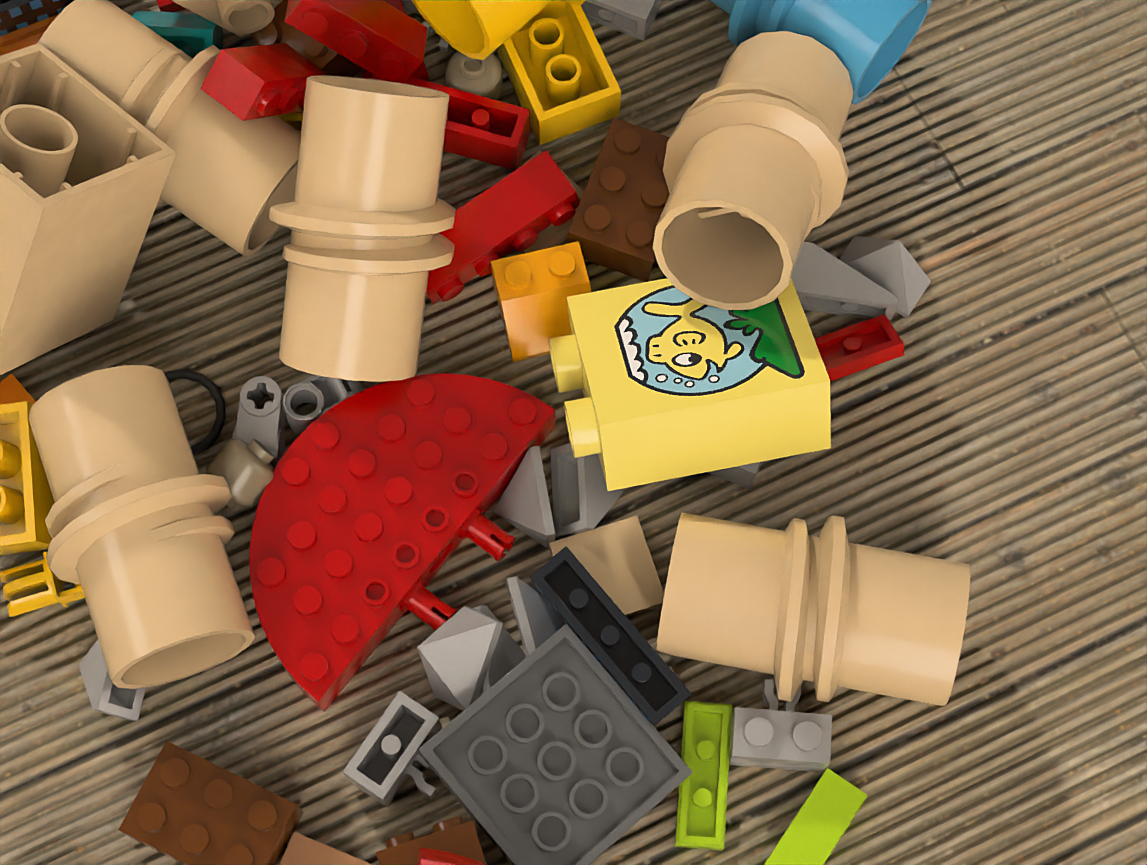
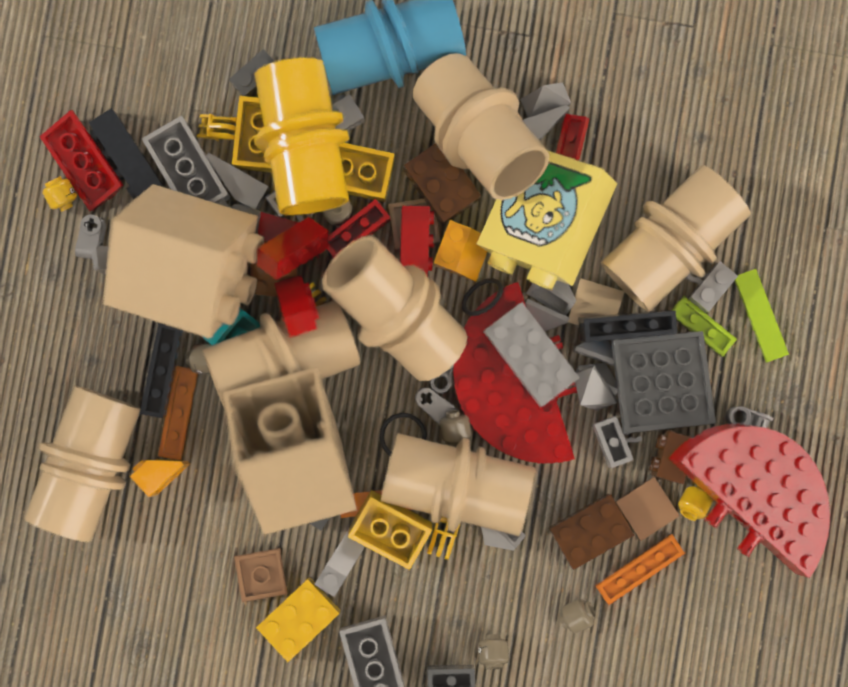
camera: 50 degrees left, 15 degrees up
(441, 498) = (531, 354): none -> light grey brick
(488, 388) = (488, 307): none -> black piece

